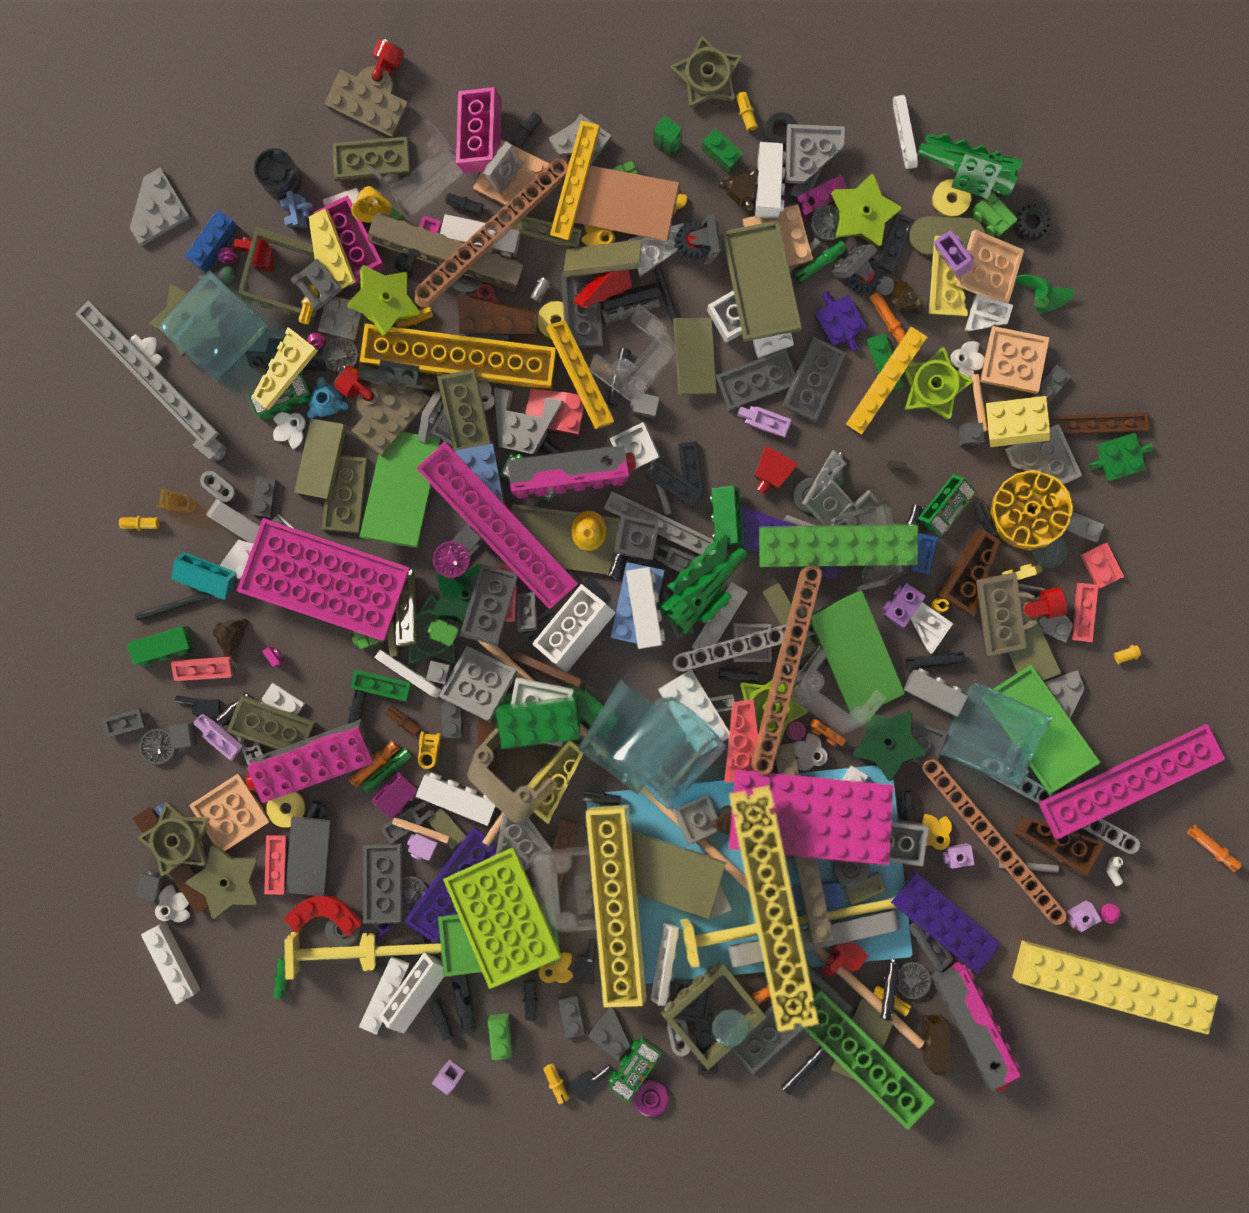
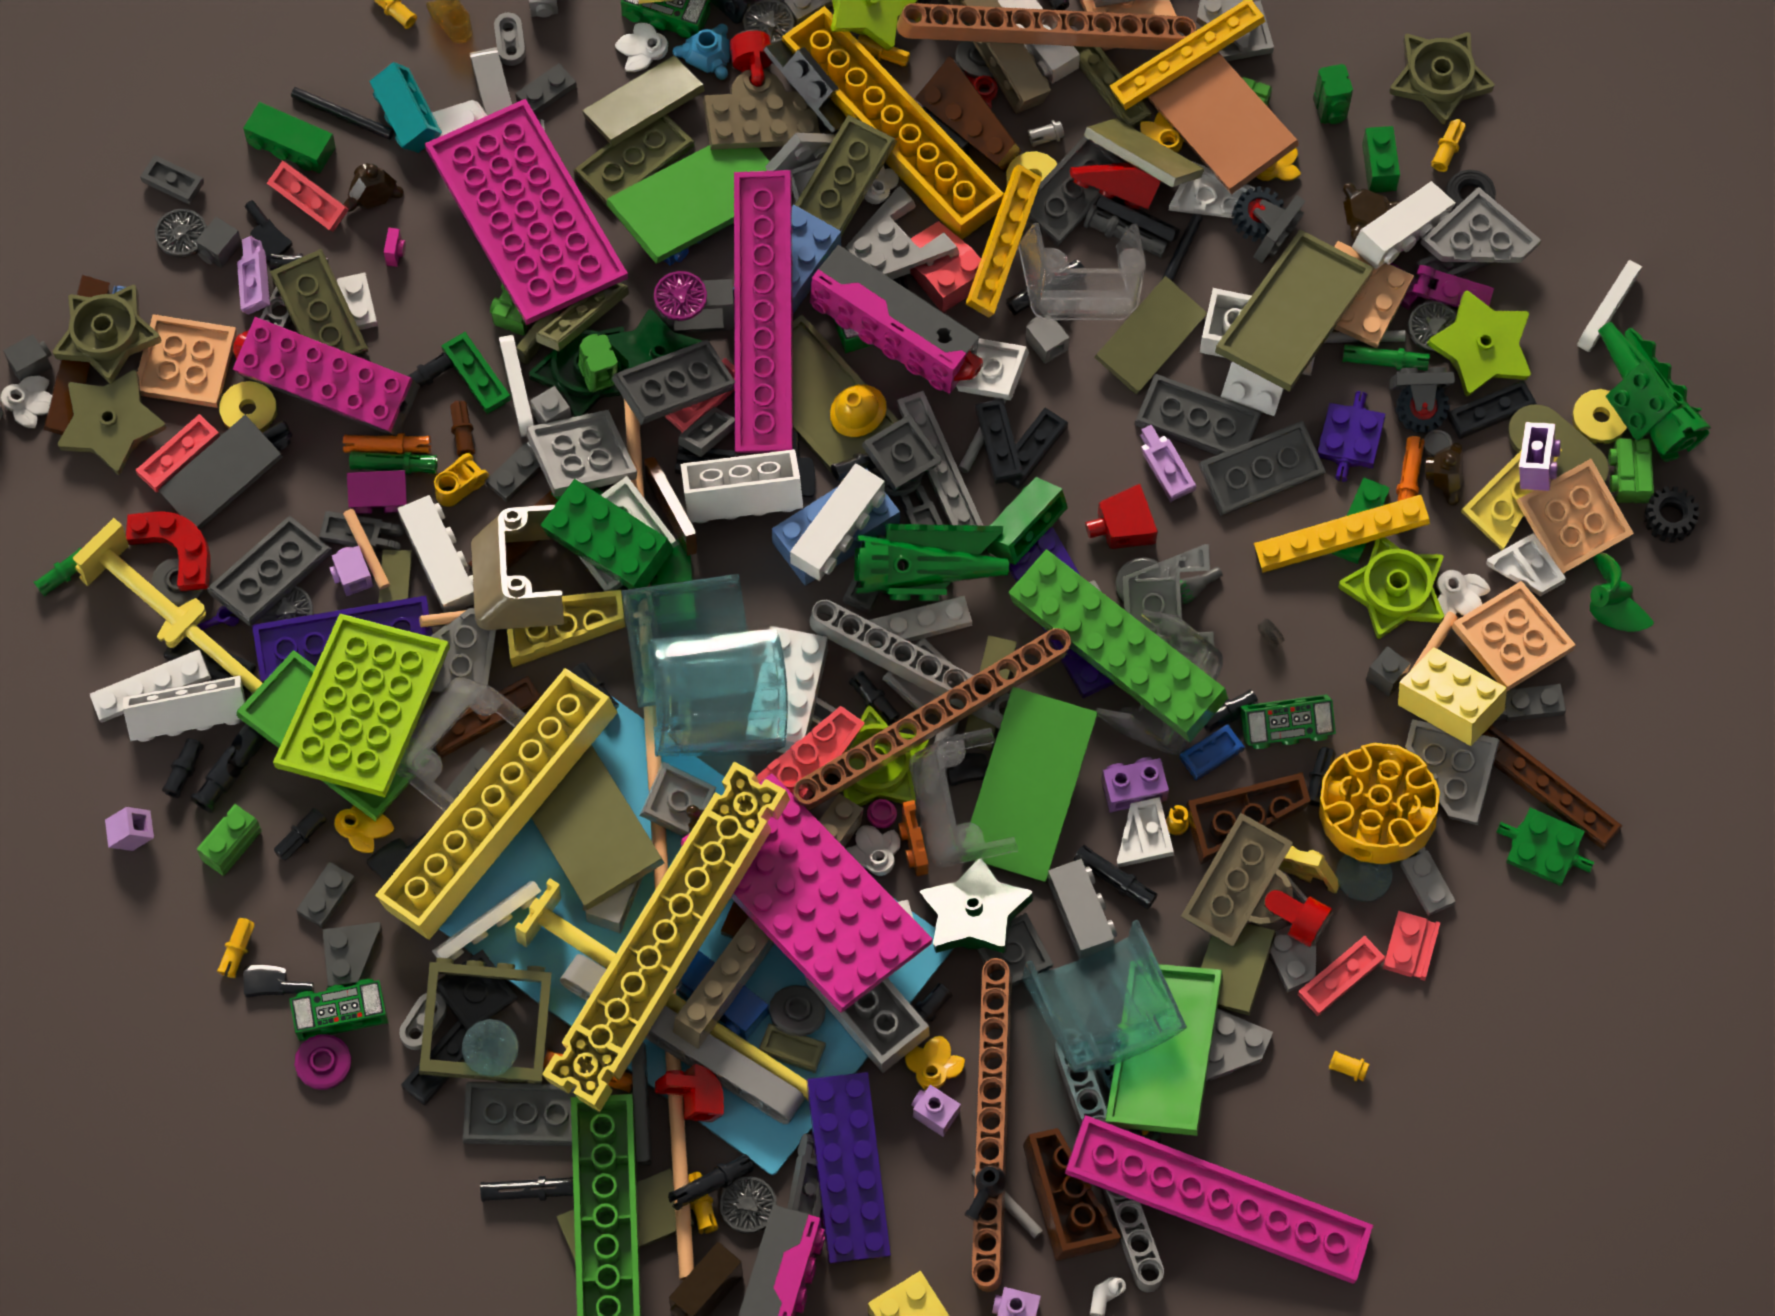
camera: 40 degrees right, 20 degrees down
(1017, 872) = (986, 1190): none -> black bar

